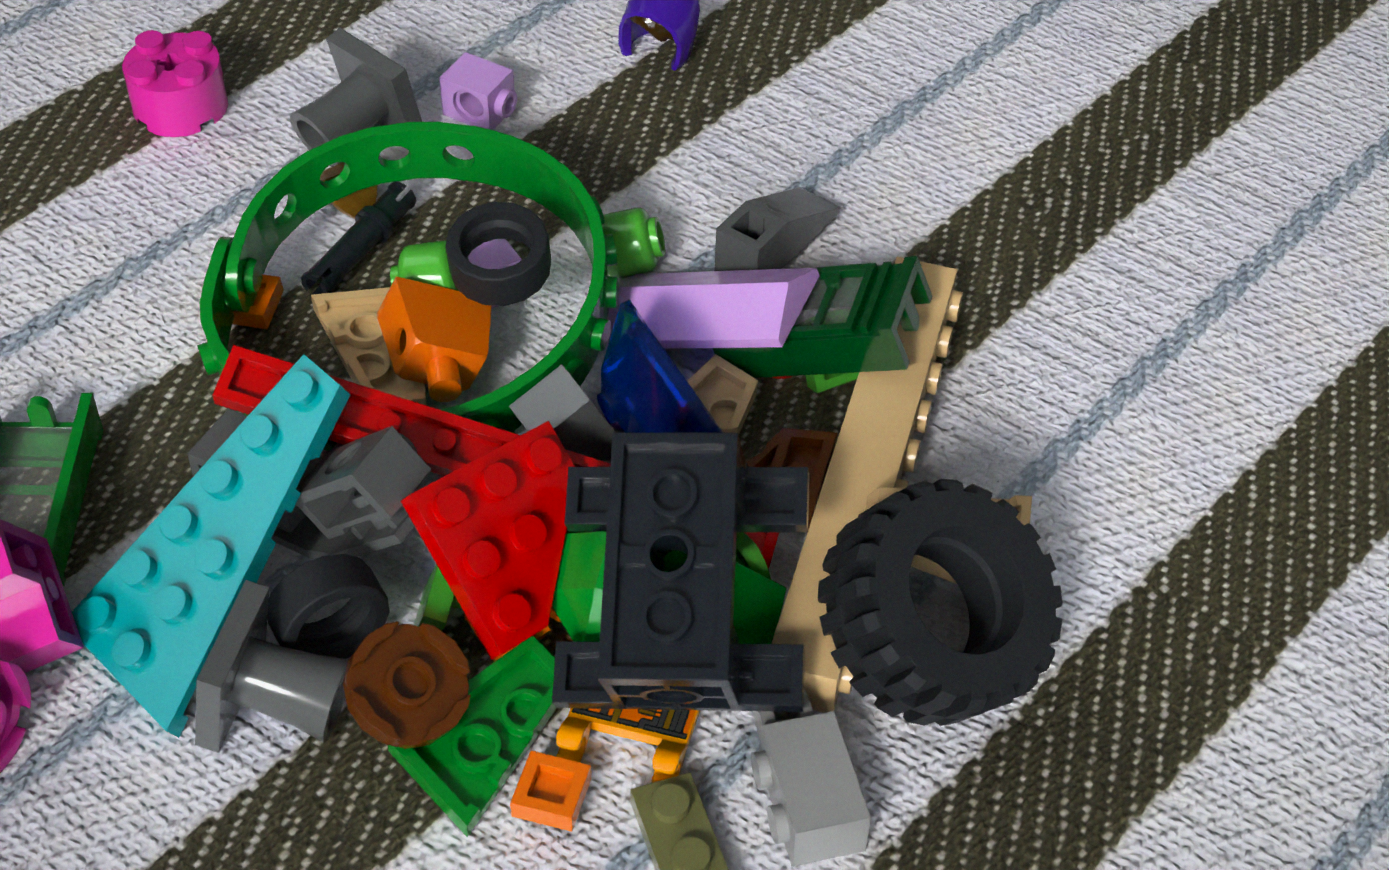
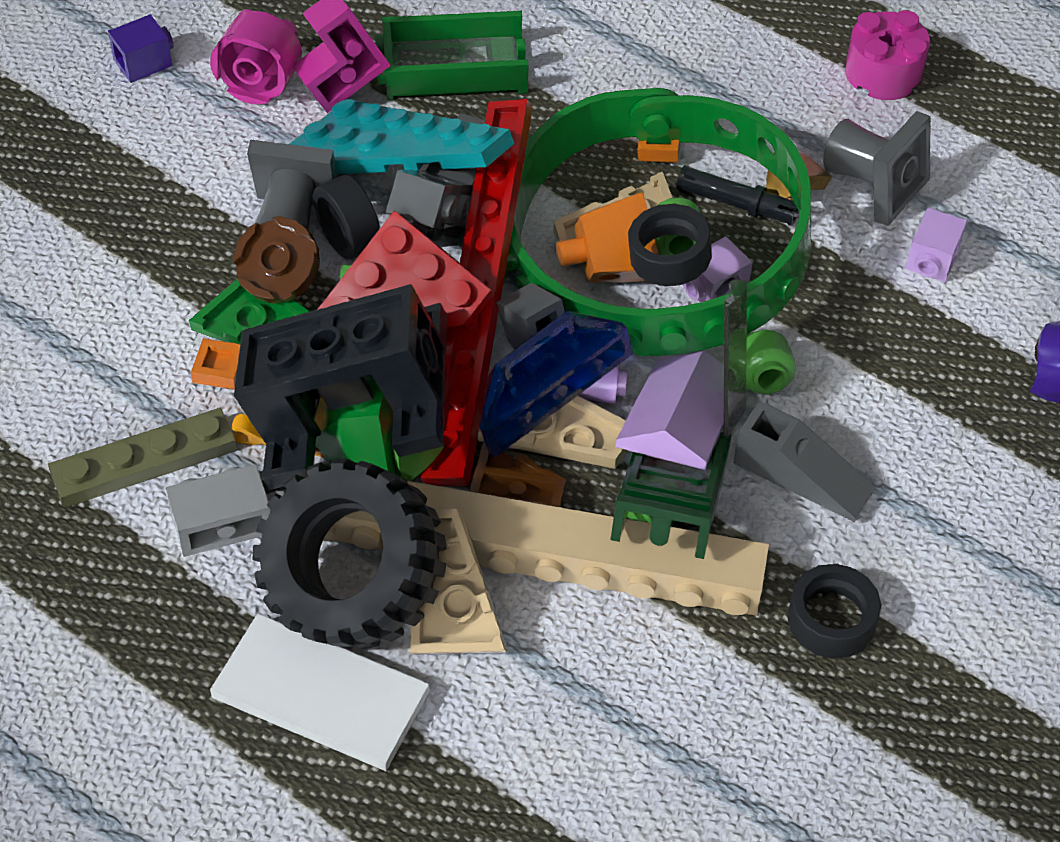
camera: 85 degrees right, 5 degrees up
(665, 222) = (735, 354): none -> clear smoke piece
(965, 212) = (841, 581): none -> black tyre
(1078, 713) = (321, 692): none -> white tile

